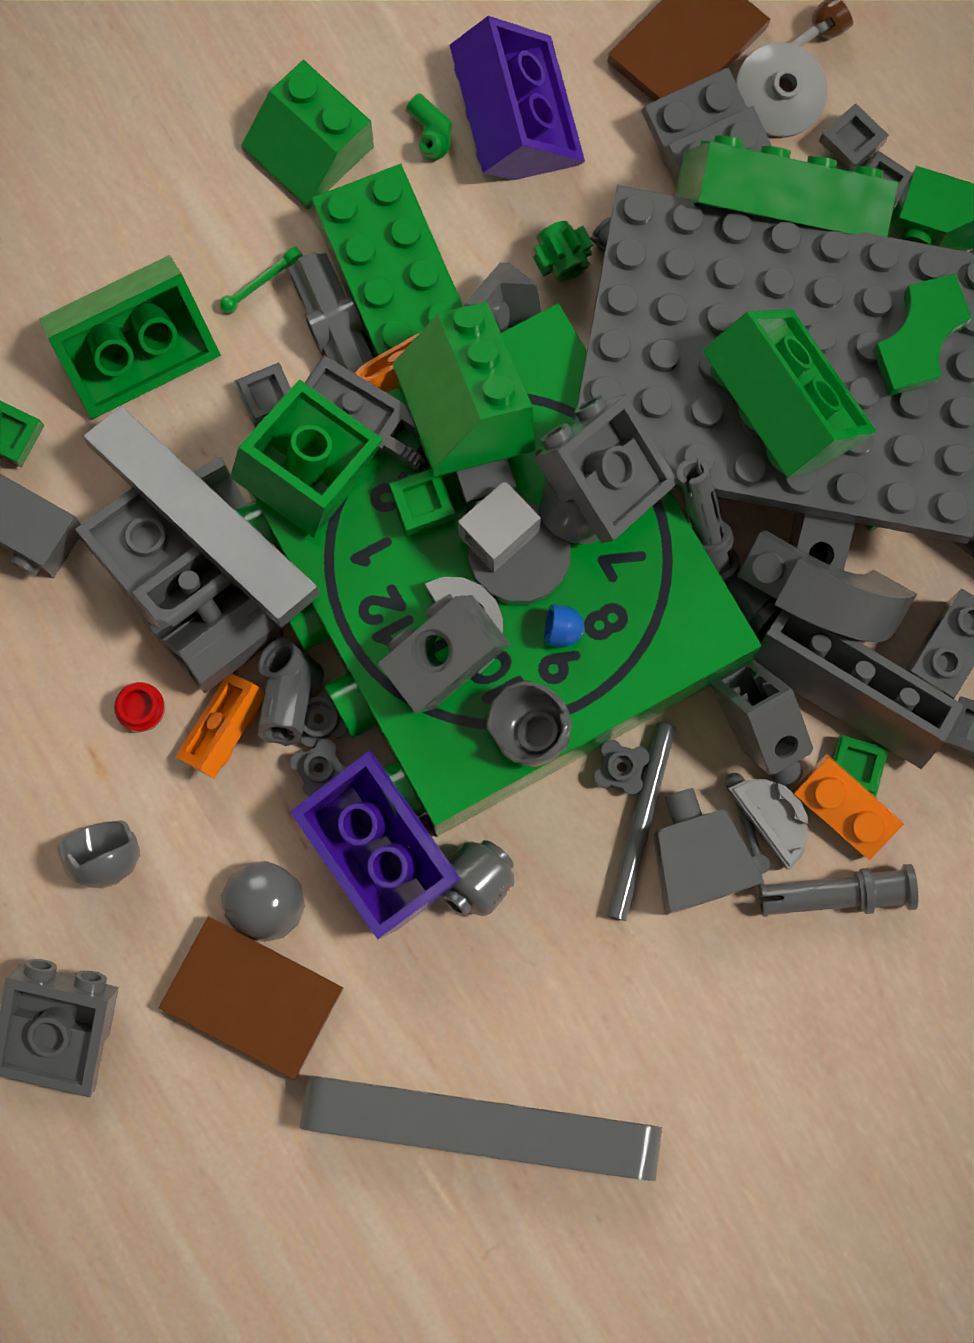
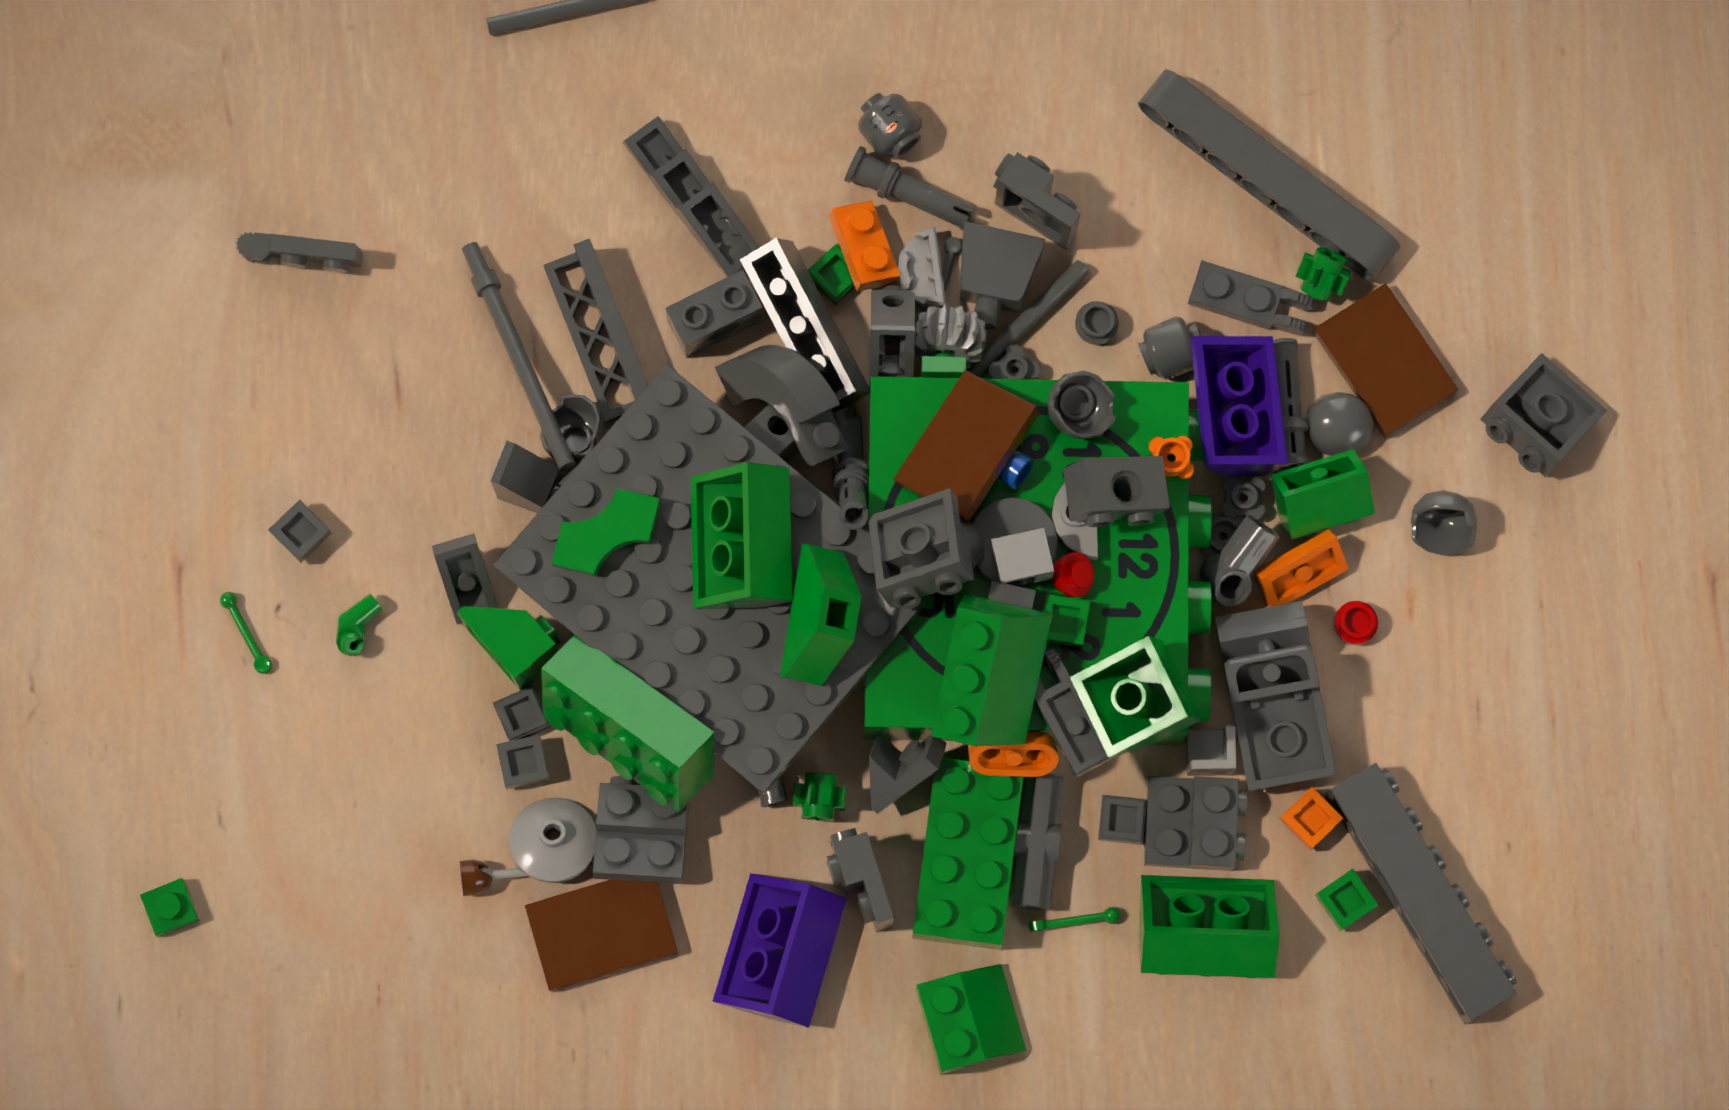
camera: 150 degrees left, 0 degrees up
(83, 489) = (1311, 818): none -> orange plate
(196, 417) = (1194, 822): none -> dark grey plate
(202, 516) = (1235, 721): tile -> none
(239, 810) = (1323, 494): none -> green brick
(359, 941) = (1289, 390): none -> dark grey pin
(363, 1049) = (1323, 273): none -> green gear
(405, 745) = (1180, 448): none -> orange plate
(431, 981) = (1247, 298): none -> dark grey hinge
(435, 130) = (858, 968): green arm -> none
(438, 550) = (1073, 574): none -> red plate
(482, 194) = (857, 870): none -> dark grey plate
(568, 865) = (1096, 322): none -> dark grey plate
(622, 618) = (967, 443): none -> reddish brown tile
(668, 357) = (820, 616): none -> green slope
(691, 712) = (943, 366): none -> green plate
(706, 754) = (950, 332): none -> light grey gear
(717, 951) = (1025, 193): none -> dark grey plate
(901, 949) = (889, 124): none -> dark grey head

